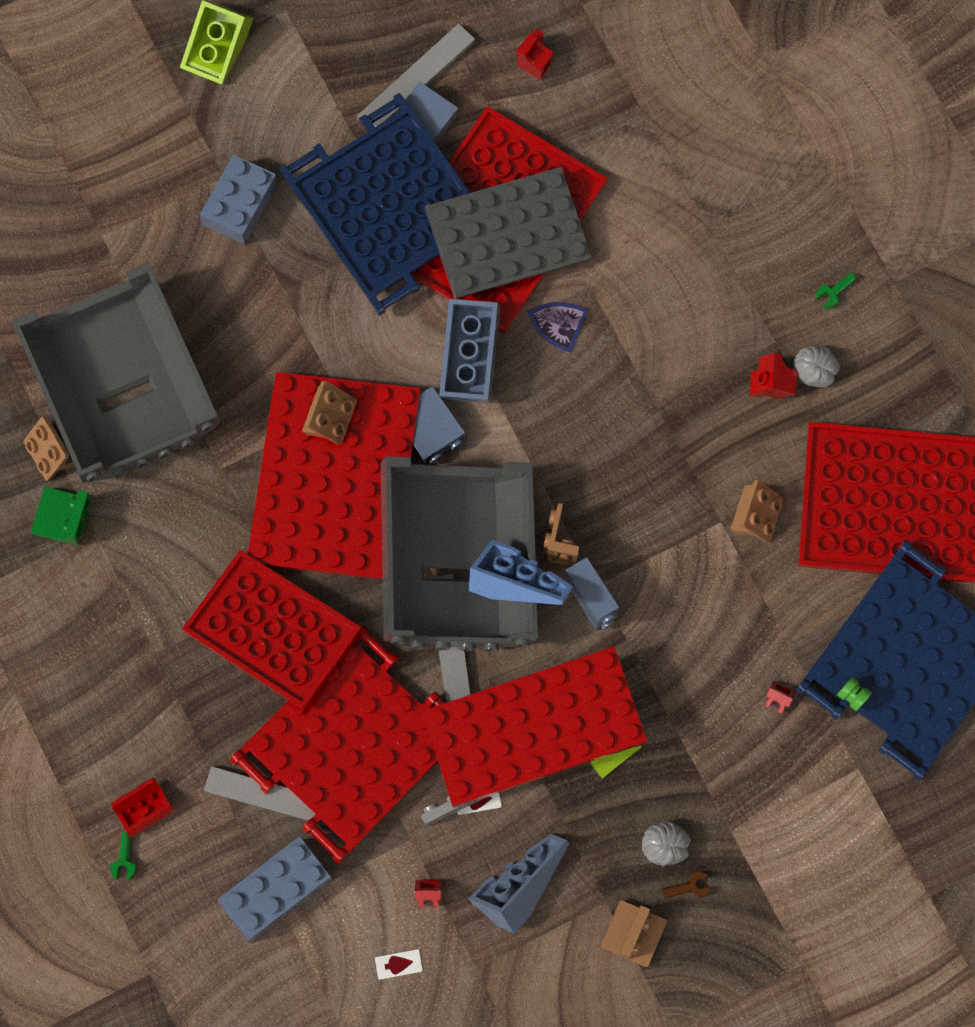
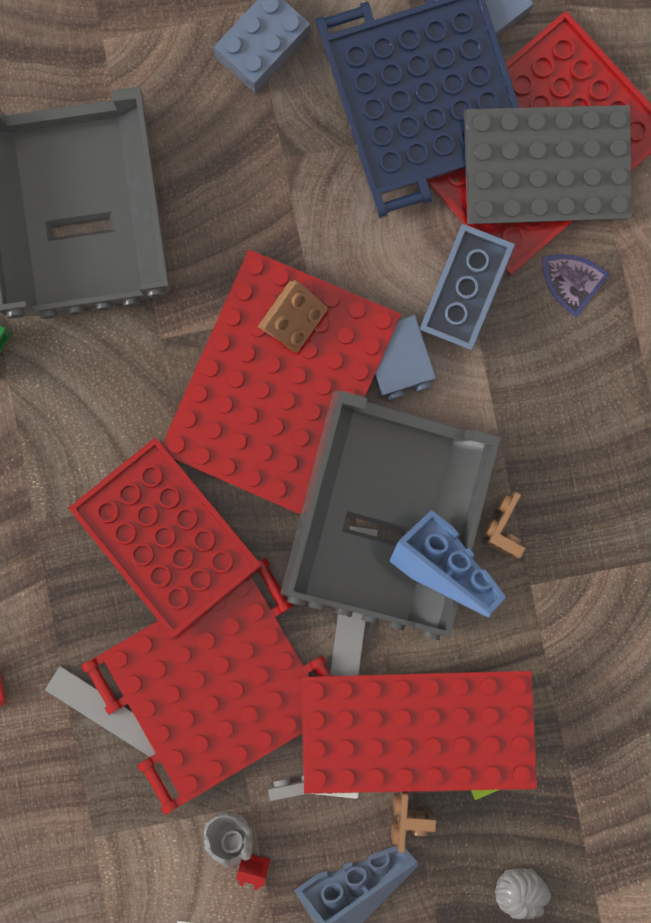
camera: 15 degrees right, 10 degrees up
(274, 889) = (89, 822): sand blue brick -> none
(399, 868) = (228, 839): none -> light grey hair
(555, 805) = (418, 821): none -> medium nougat bracket
(592, 594) = (523, 601): sand blue brick -> none

